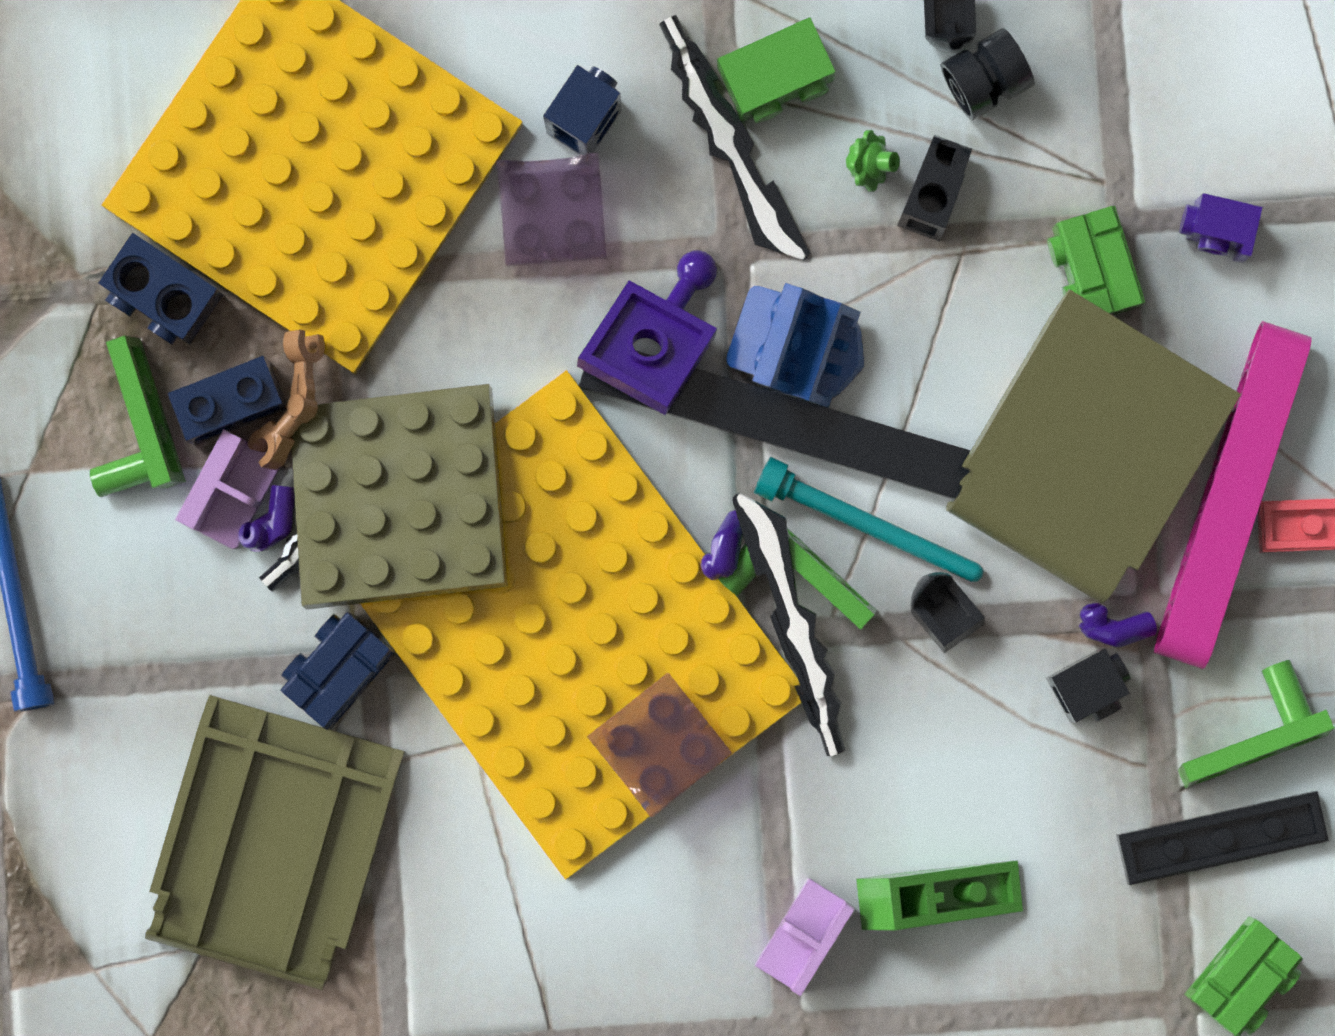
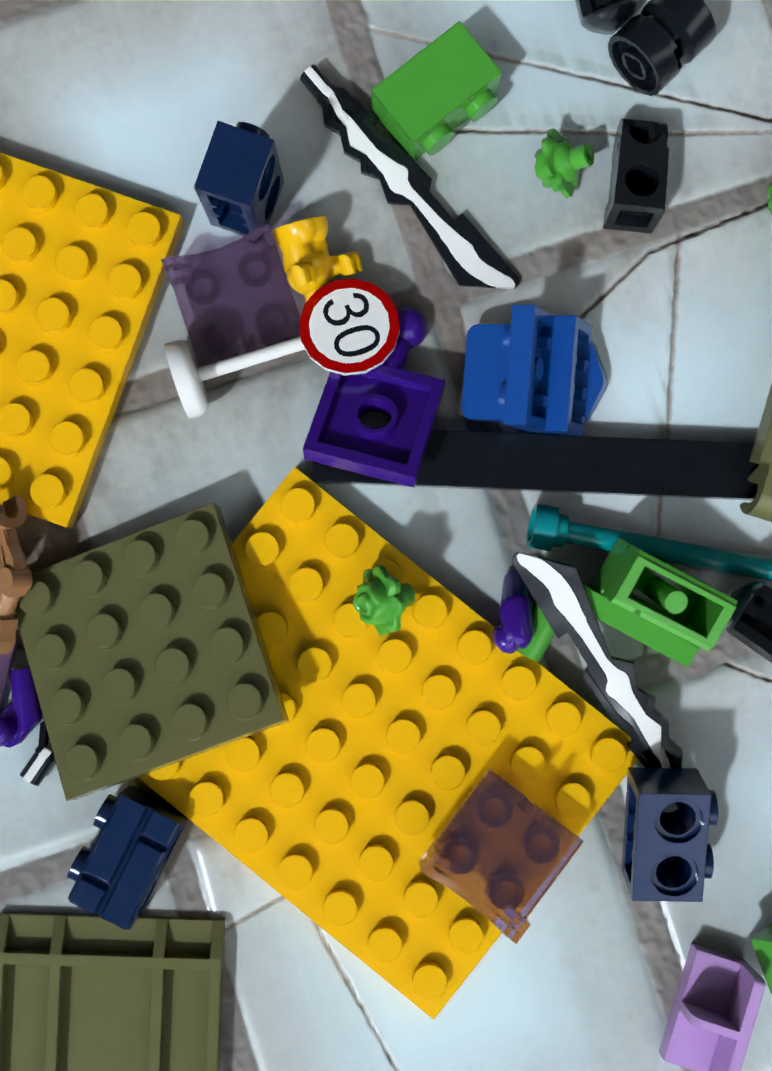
camera: 15 degrees left, 0 degrees up
(613, 504) = (382, 600): none -> bright green plant
(625, 192) = (307, 255): none -> yellow piece
(640, 261) = (342, 327): none -> white piece
(798, 766) = (659, 835): none -> dark blue brick
(856, 561) = (664, 595): none -> bright green brick

